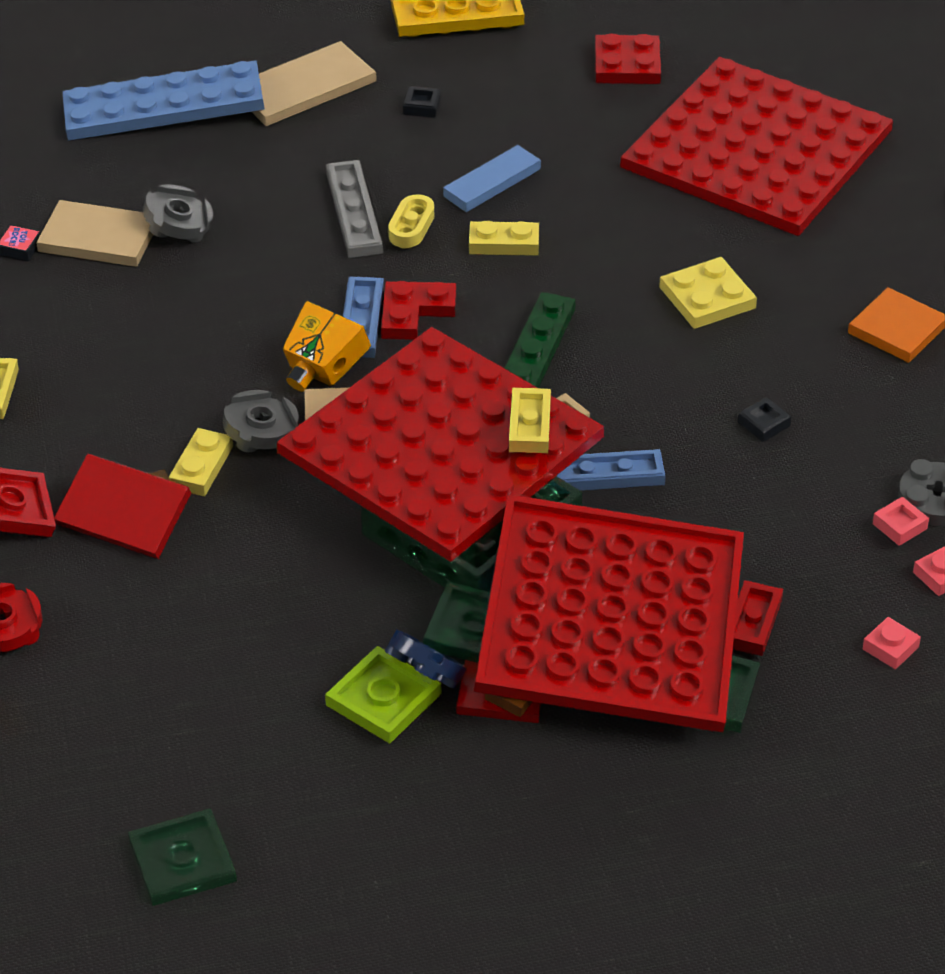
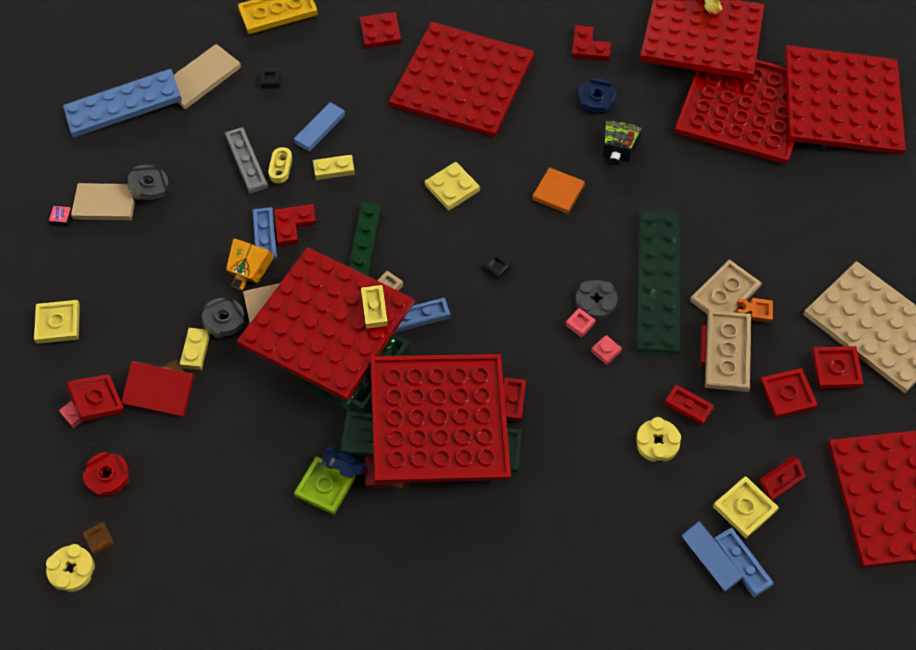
camera: 10 degrees left, 15 degrees up
(182, 856) = (237, 607): clear green tile -> none
(891, 643) = (587, 401): coral plate -> none

